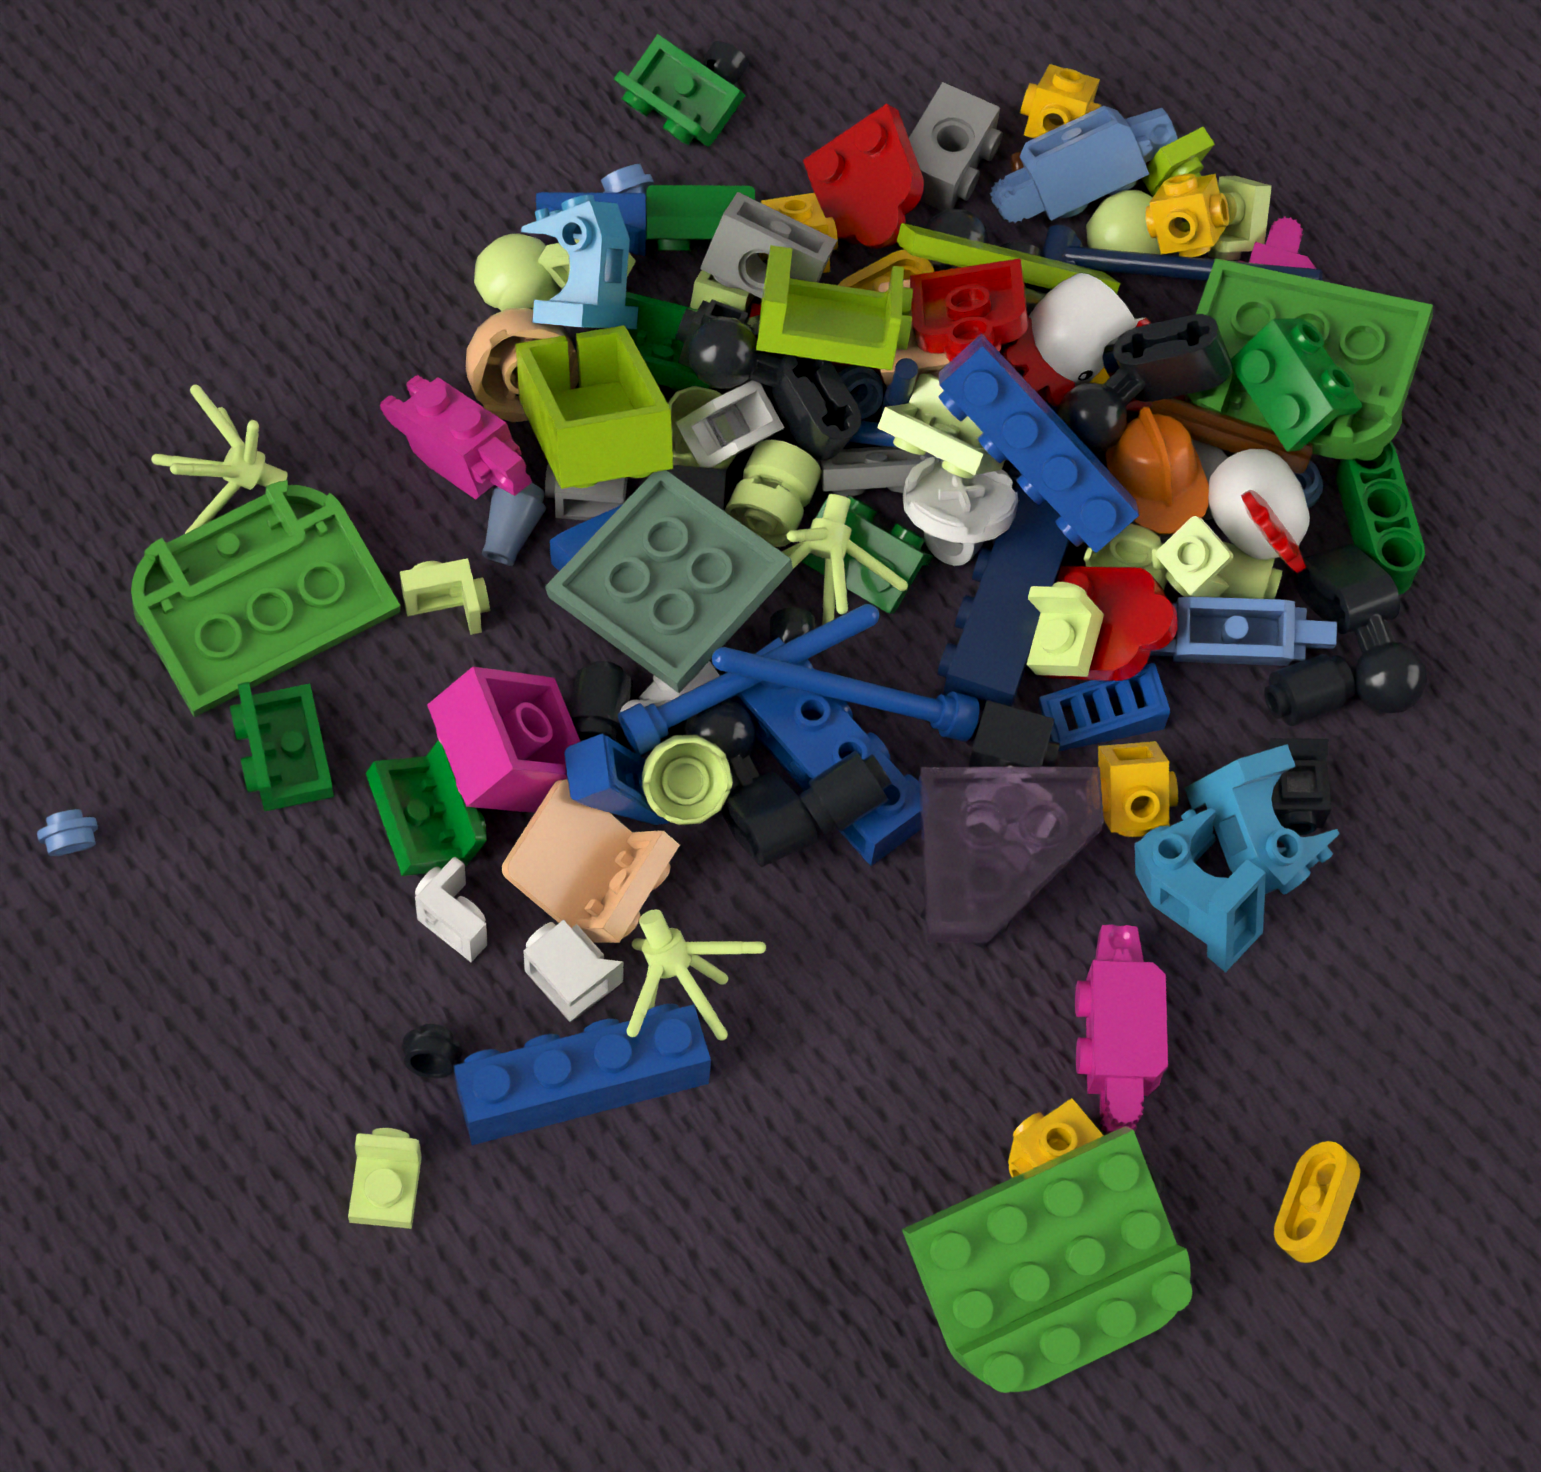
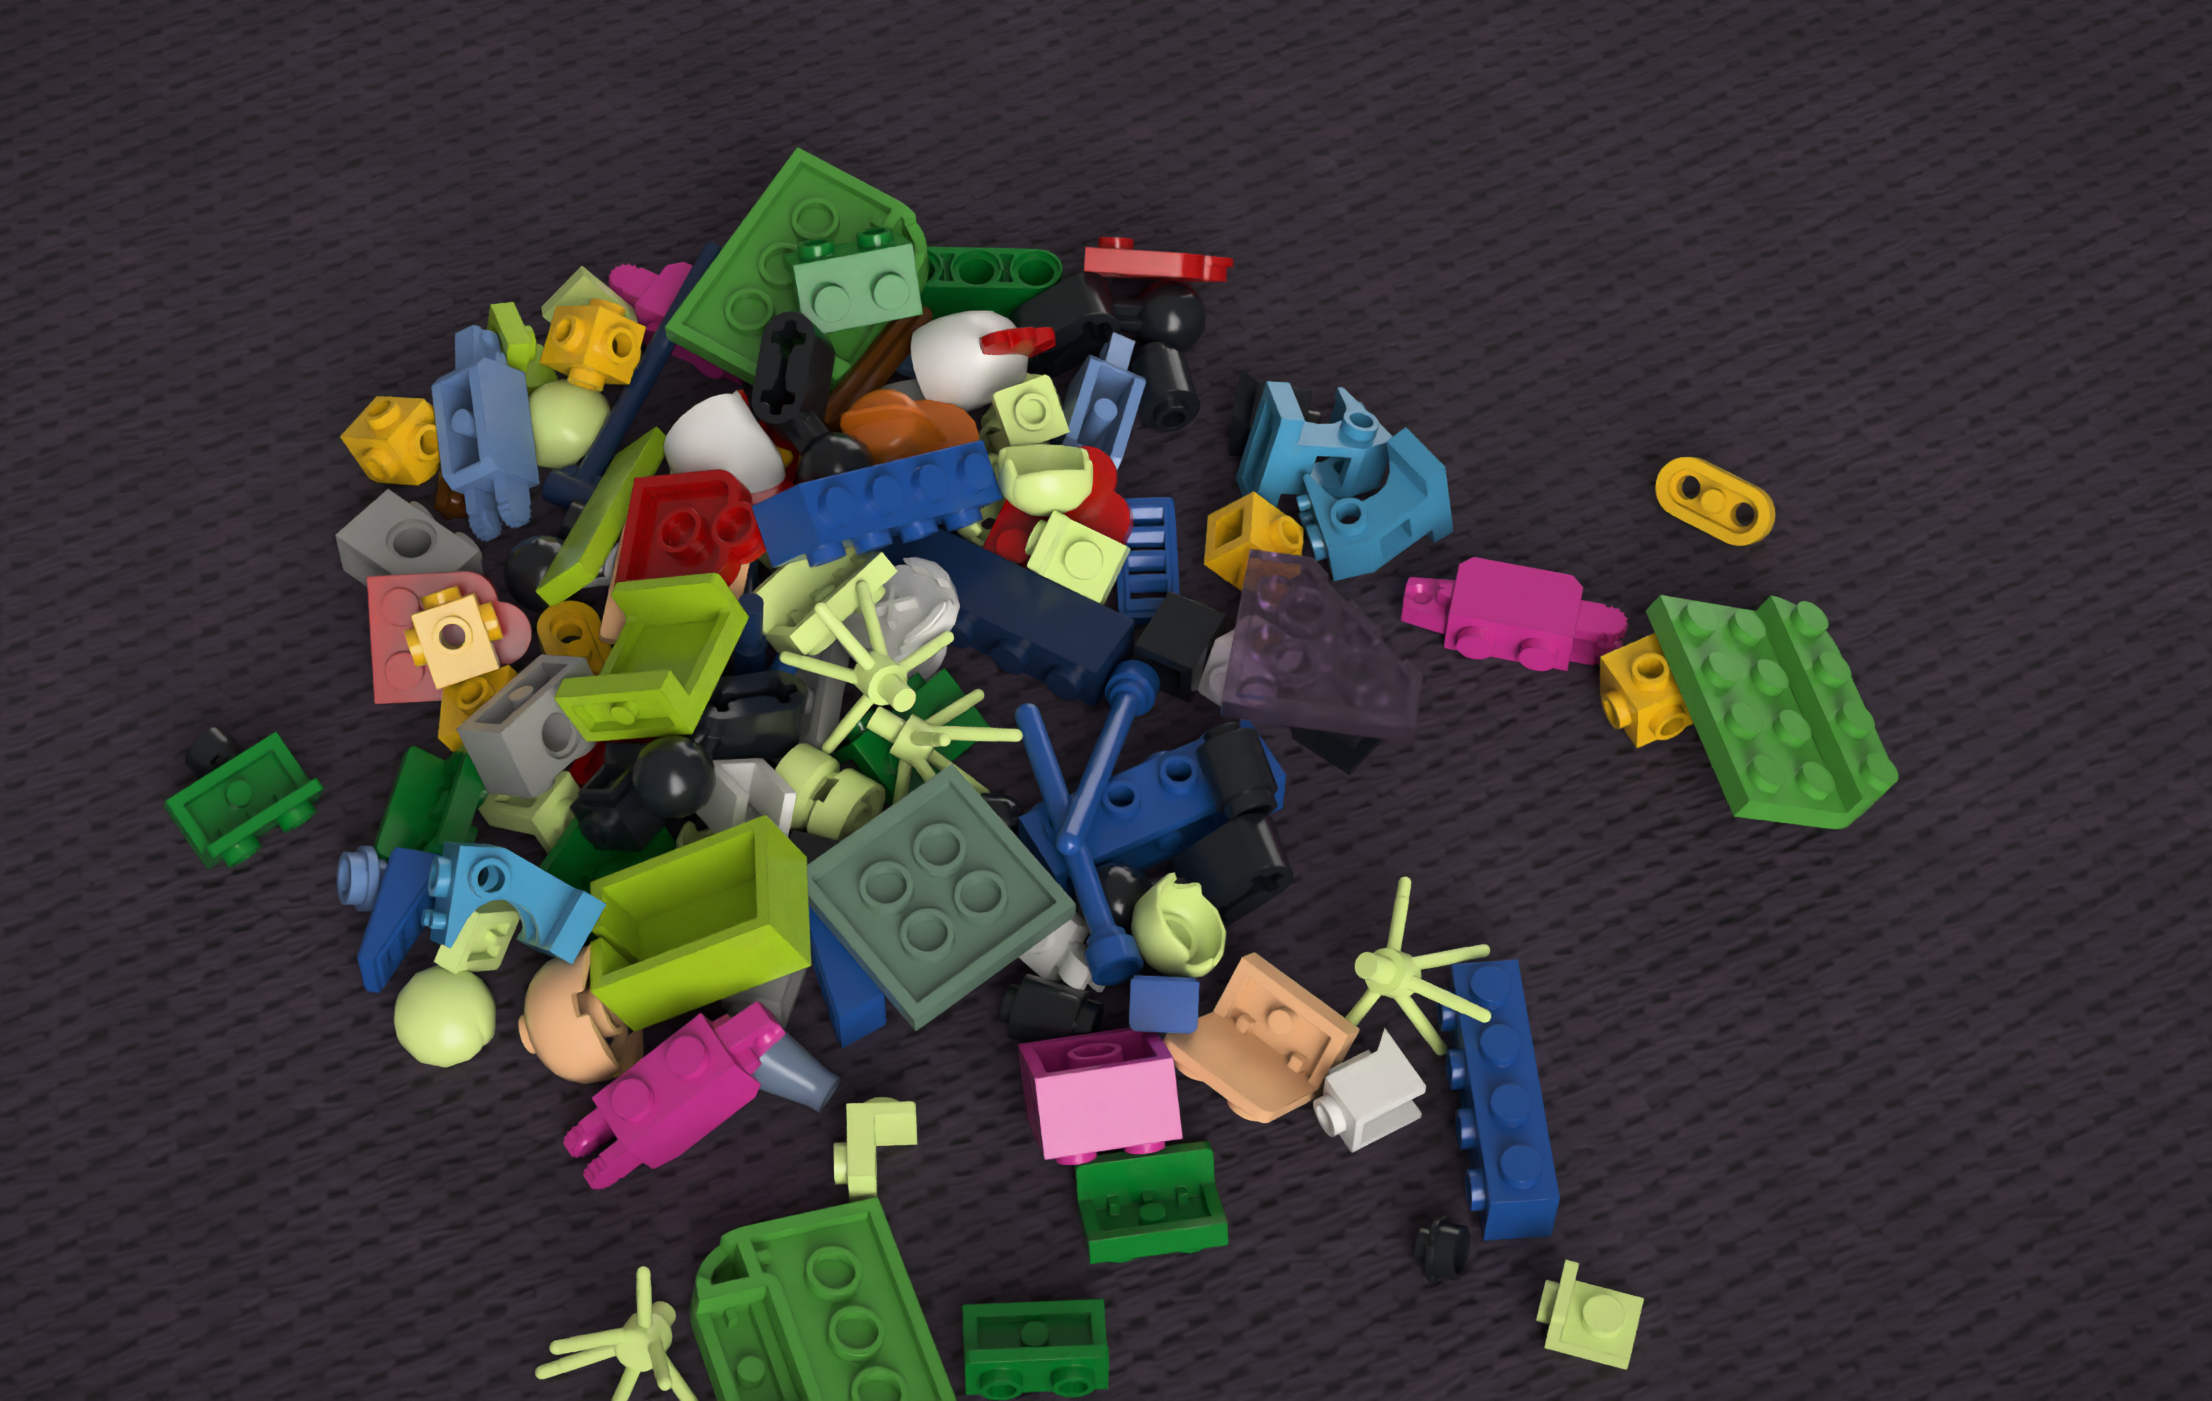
camera: 75 degrees left, 10 degrees down
(452, 919) = (1287, 1204): white bracket -> none
(842, 179) = (447, 661): none -> yellow brick
(867, 483) = (875, 673): none -> yellowish green plant
(1122, 576) = (1045, 477): none -> yellowish green hair
(1439, 644) = (1118, 259): none -> plate

